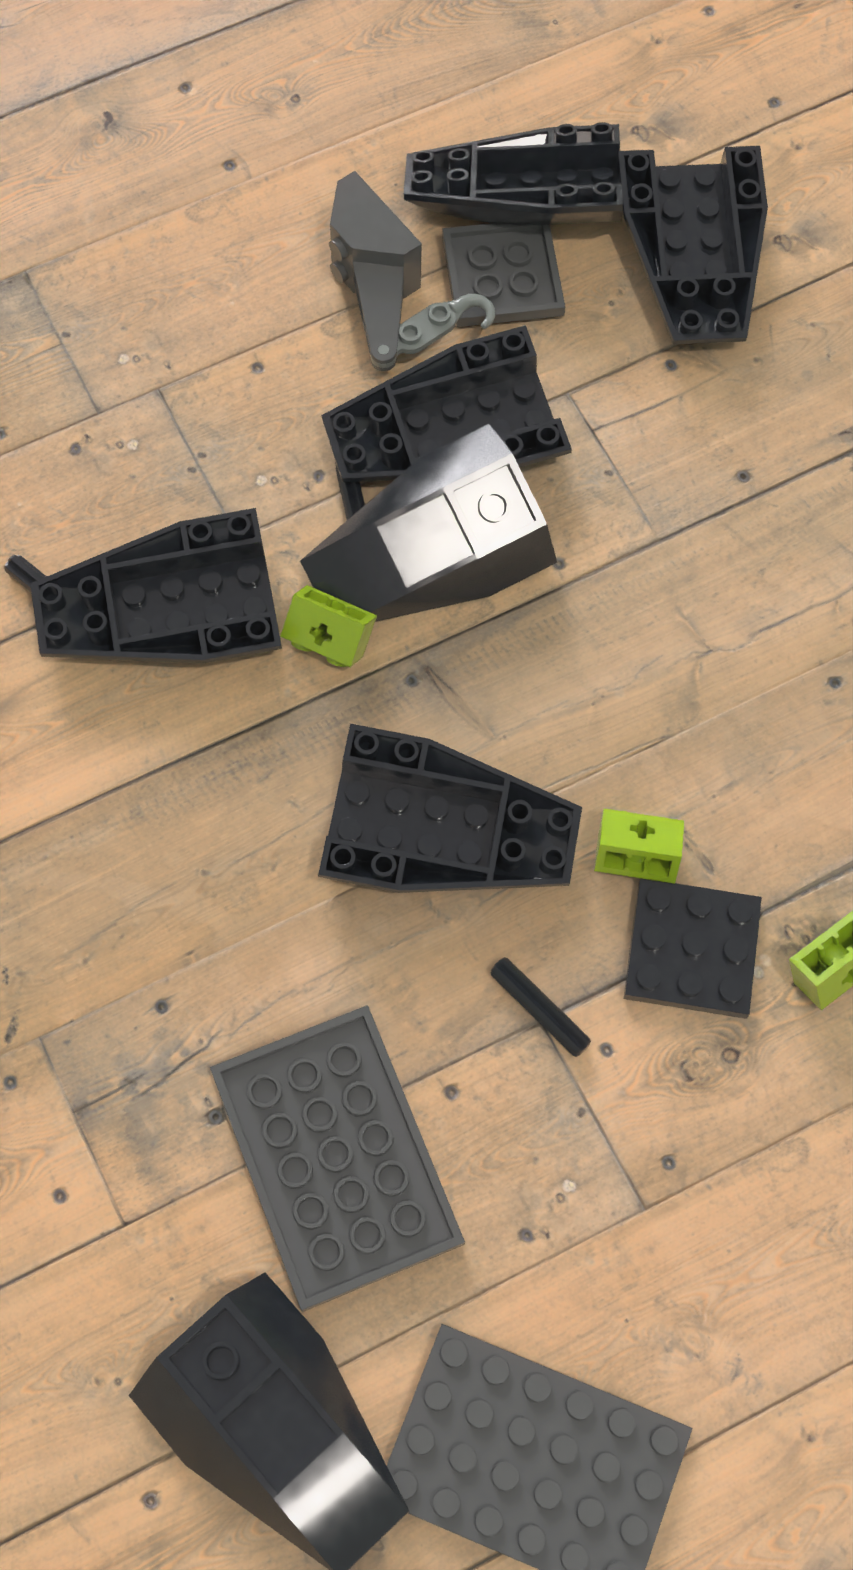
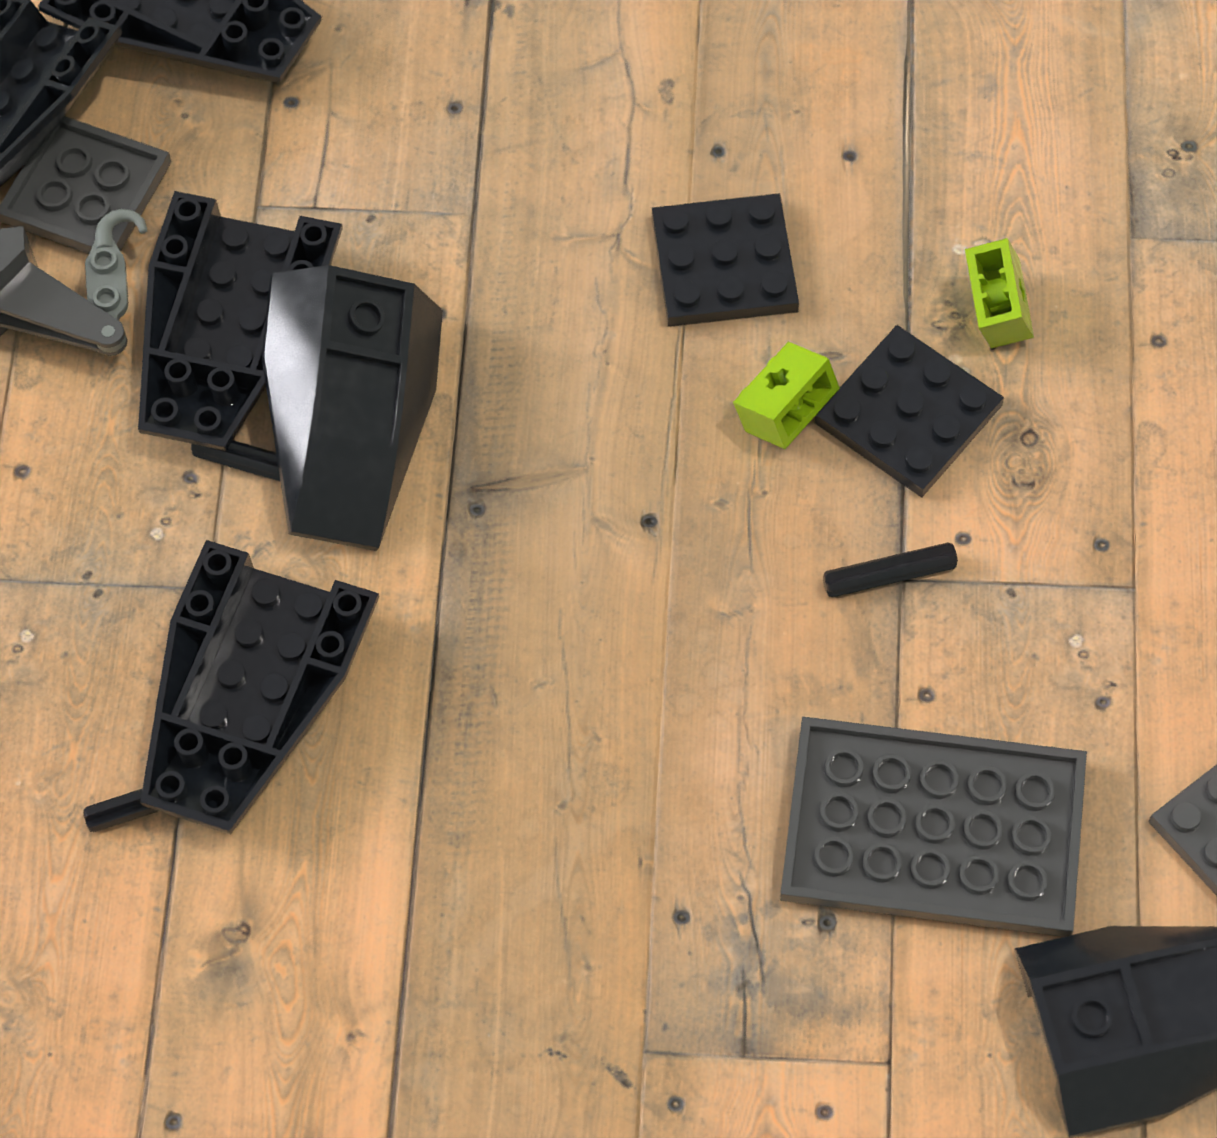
camera: 55 degrees left, 5 degrees down
(328, 626) = (356, 545): lime brick -> none
(442, 821) = (652, 555): black wedge -> none
(737, 738) = (724, 260): none -> black plate

